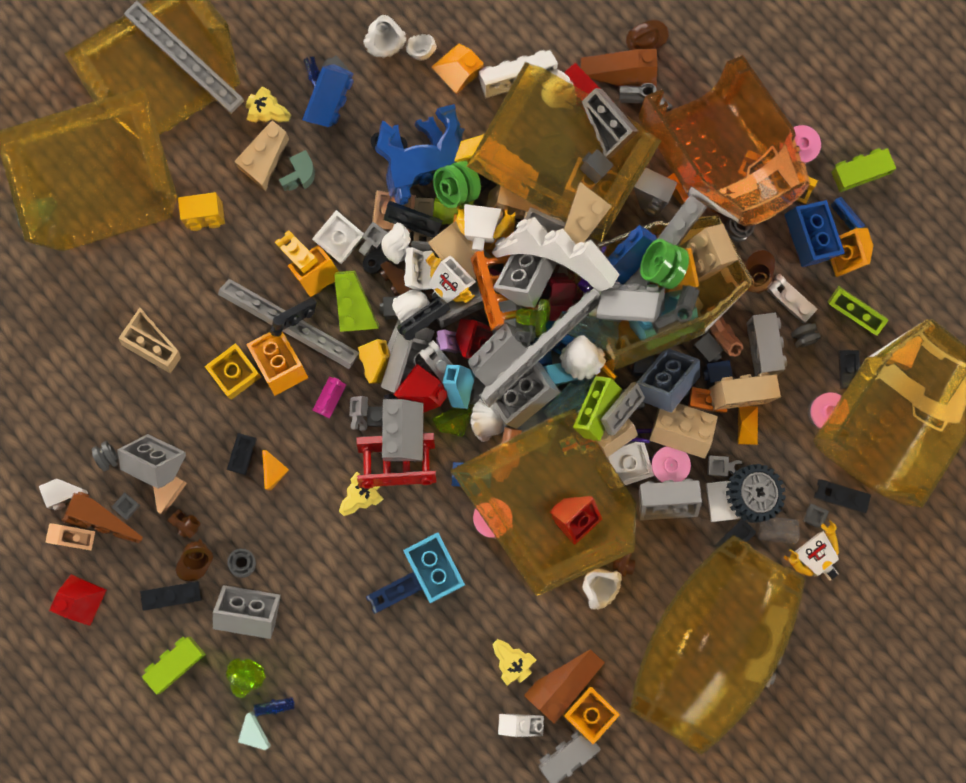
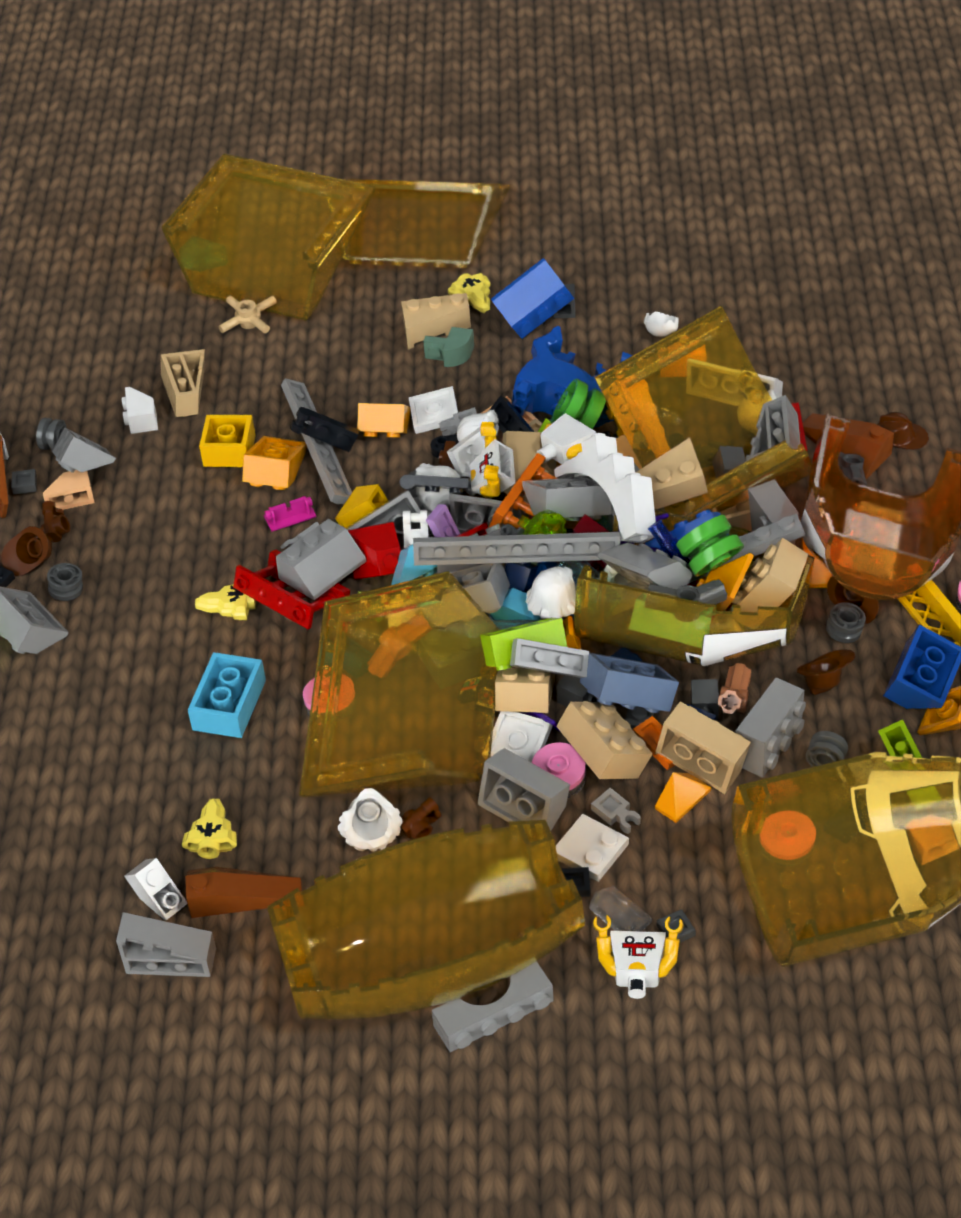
camera: 45 degrees right, 35 degrees down
(125, 240) = (247, 314): none -> tan bar
(143, 388) = (140, 412): none -> white slope
(184, 57) = (440, 220): light grey plate -> none
(201, 211) = (334, 319): yellow brick -> none
(241, 454) = (164, 506): black plate -> none
(273, 470) = (173, 533): light orange slope -> none
(296, 252) = (382, 391): yellow plate -> none
(353, 307) = (387, 452): lime wedge -> none
(384, 37) = (631, 297): white hair -> none
(394, 592) = (163, 695): dark blue plate -> none
(576, 516) = (411, 730): red slope -> none
(591, 715) = (232, 922): light orange slope -> none
(631, 275) = (666, 540): none -> clear blue pin
(755, 493) = (624, 849): wheel -> none
(791, 299) = (845, 717): white plate -> none
(843, 496) = (726, 930): black plate -> none

